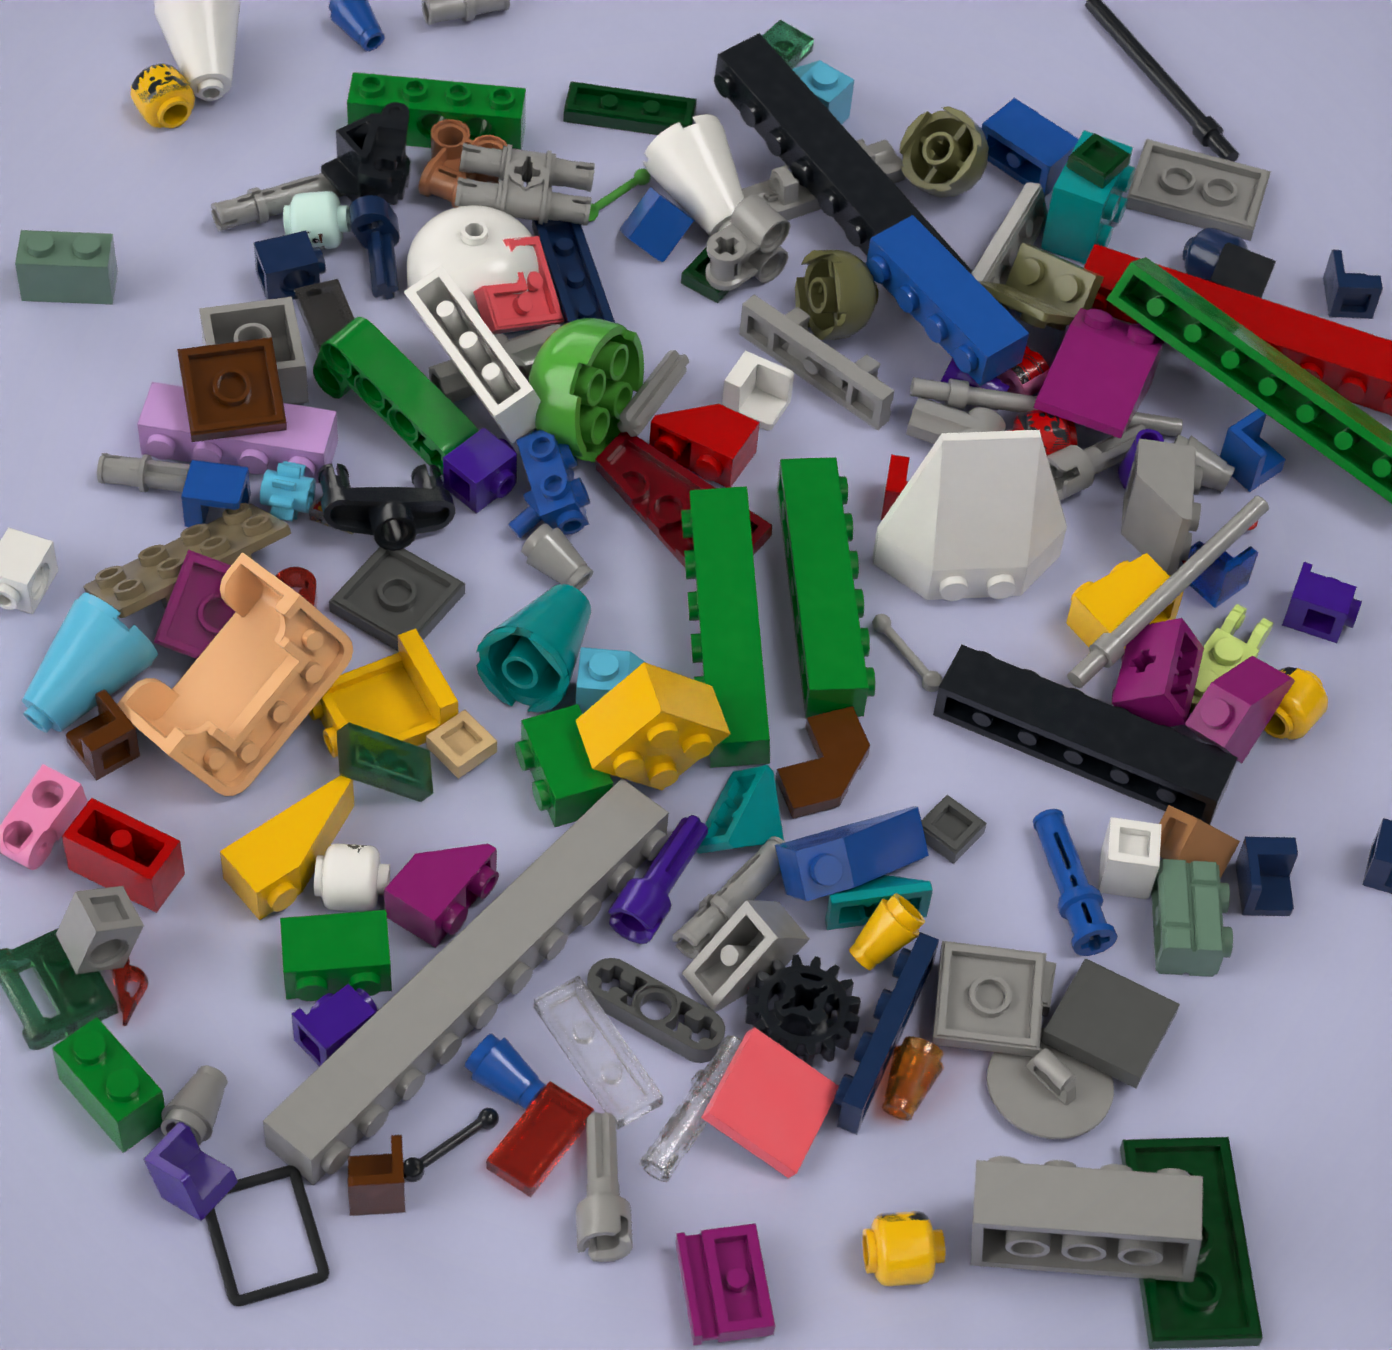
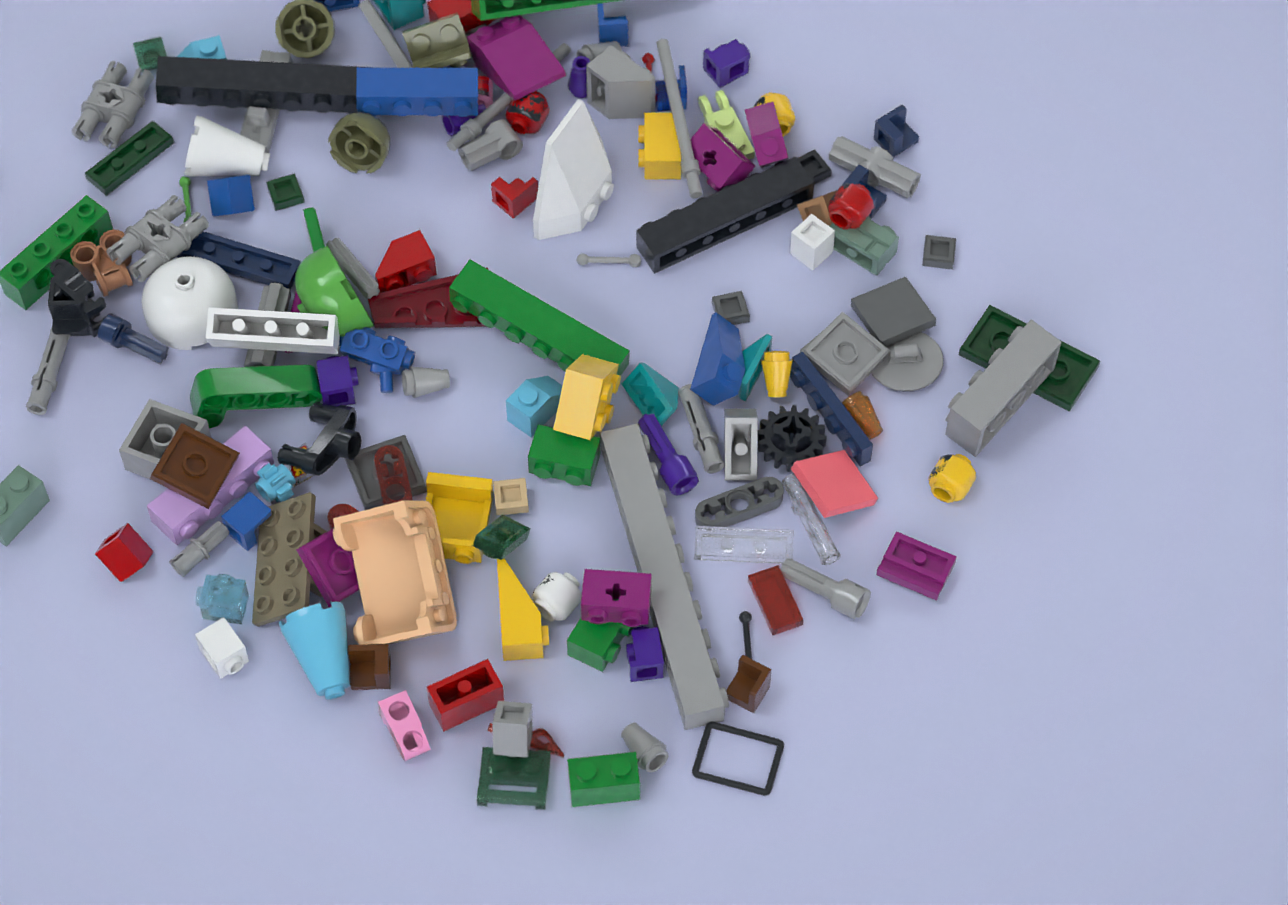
camera: 50 degrees left, 5 degrees up
(84, 404) = (124, 552): none -> red panel
(90, 533) = (223, 597): none -> clear light blue brick
(187, 1174) = (686, 771): dark purple panel -> none
(287, 264) = (107, 393): dark blue brick -> none
(319, 216) = (85, 358): light aqua head -> none
(323, 310) = (162, 391): clear smoke tile -> none
(372, 930) = (604, 586): none -> magenta brick
(400, 596) = (382, 471): none -> clear red beam
(438, 888) = (597, 550): magenta slope -> none
(504, 1071) = (727, 592): blue cone -> none
(525, 311) = (241, 288): coral tile -> none
(536, 649) = (484, 423): teal cone -> none
(669, 332) = (313, 229): none -> green tile
(681, 51) = (112, 104): none -> light grey pin
(748, 246) = (292, 160): light grey piece -> none
(758, 389) = (388, 219): white panel -> none
(792, 344) = (391, 180): light grey hinge -> none
(822, 586) = (542, 270): green brick -> none
(825, 781) = (649, 327): reddish brown tile -> none
(1075, 467) = (558, 105): light grey piece -> none
(1078, 900) = (817, 280): blue pin -> none
(1210, 859) = (850, 206): none -> red head
(1251, 796) = (815, 166): none -> black tile
(1260, 1026) = (939, 252): none -> dark grey tile
(1321, 867) = (881, 166): none -> light grey piece

